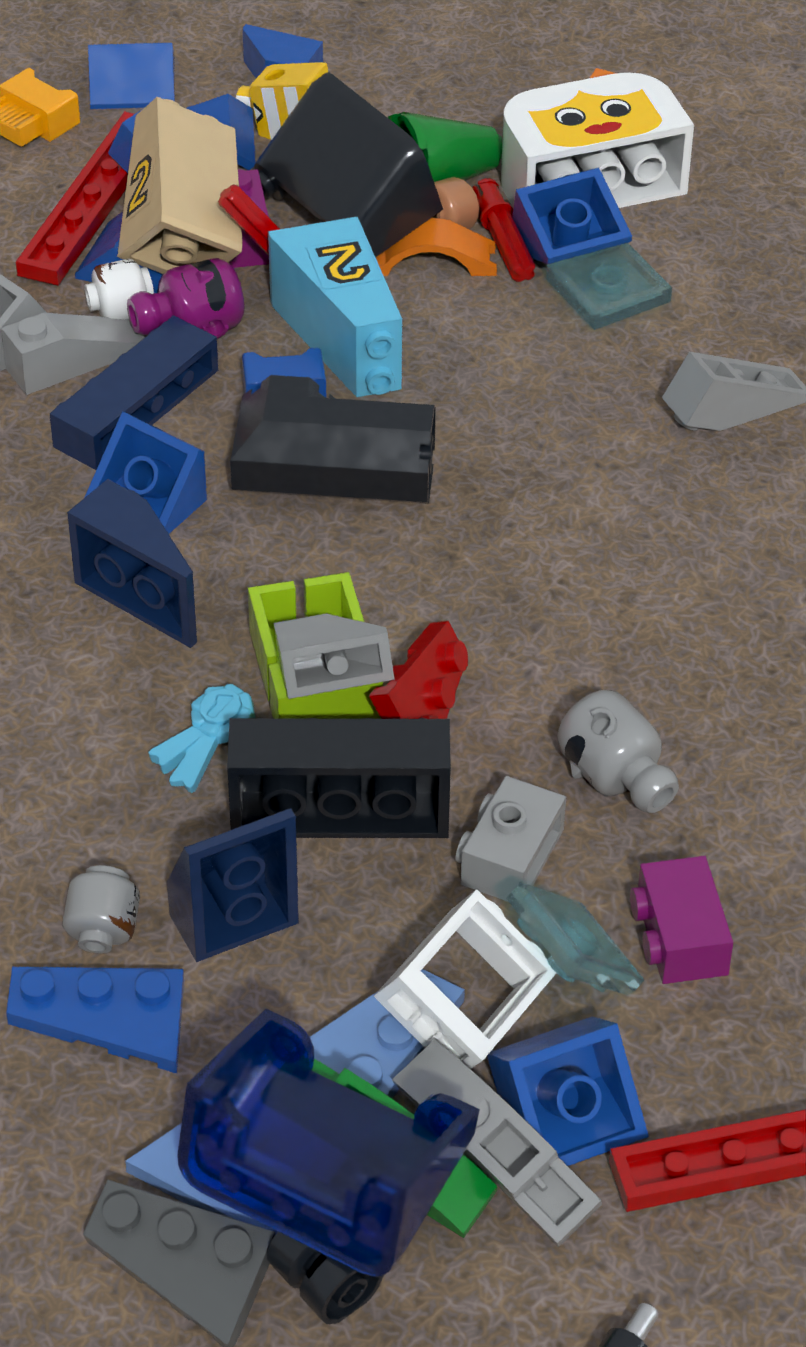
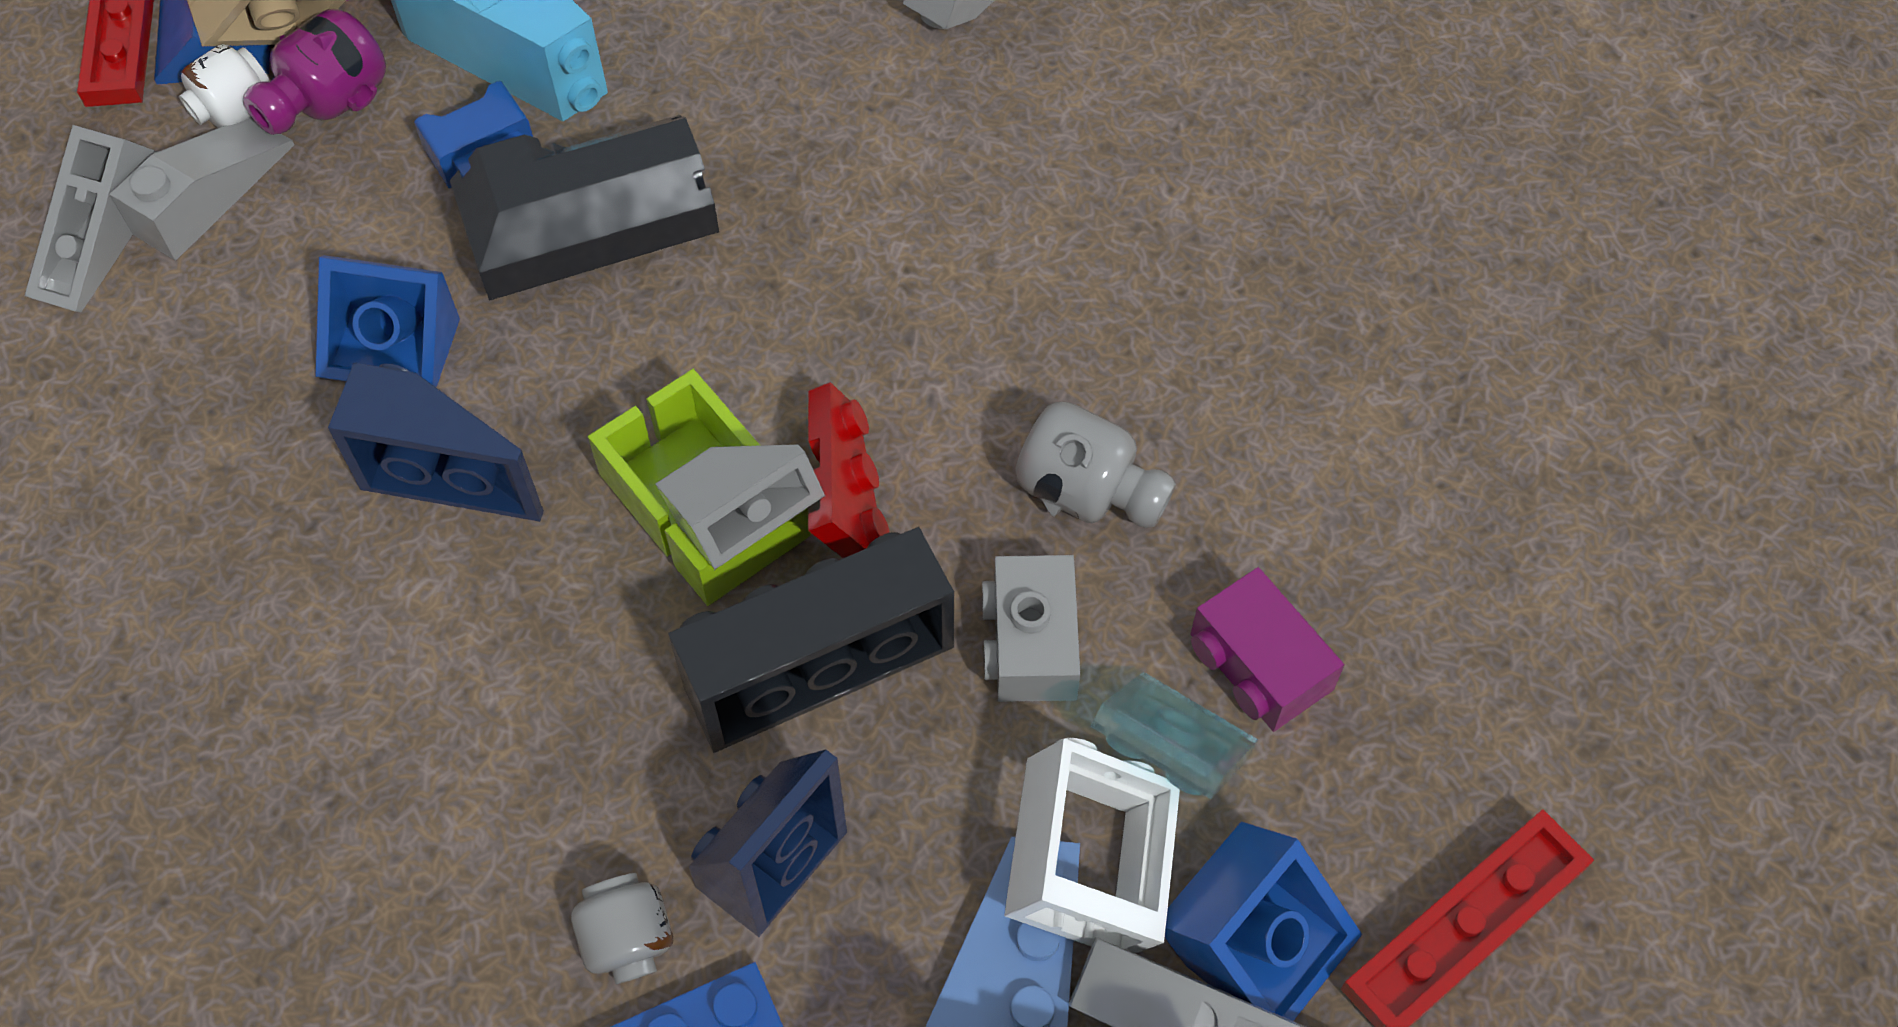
camera: 25 degrees left, 15 degrees up
(140, 382) = (306, 213): dark blue brick -> none
(195, 746) = (625, 605): medium azure piece -> none

